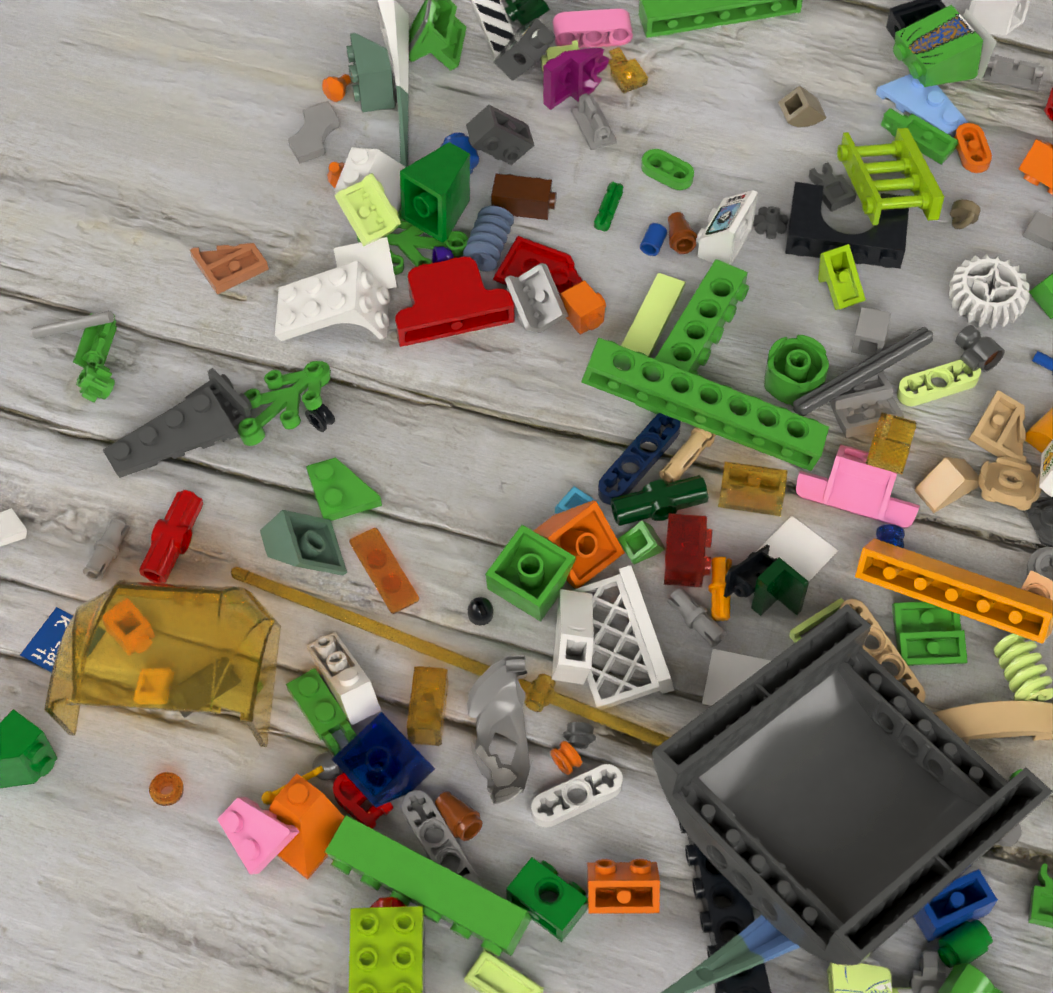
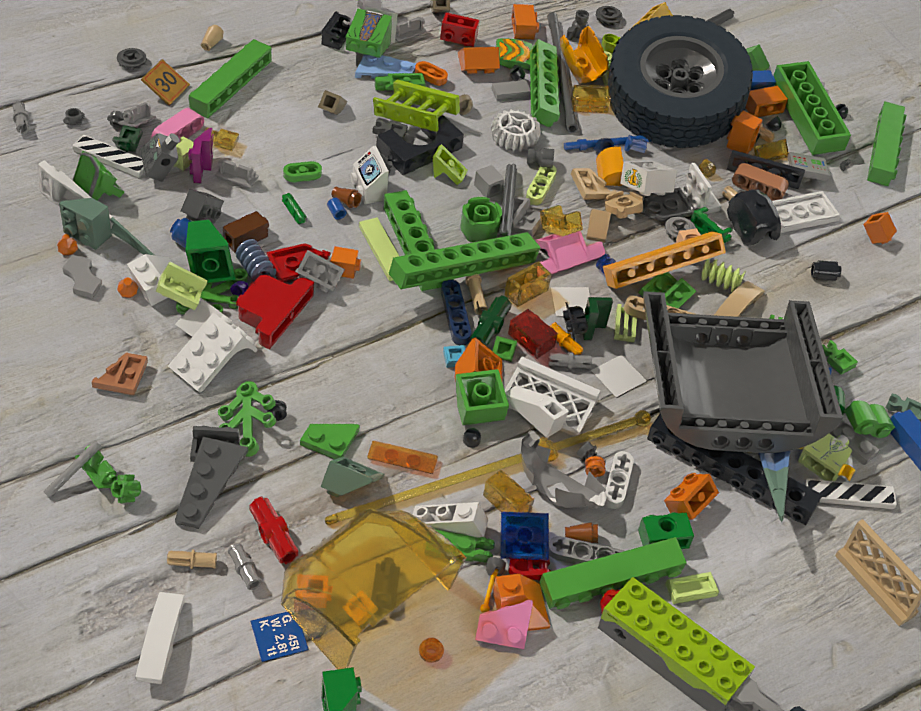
camera: 55 degrees left, 10 degrees down
(74, 502) = (192, 559): none -> tan axle

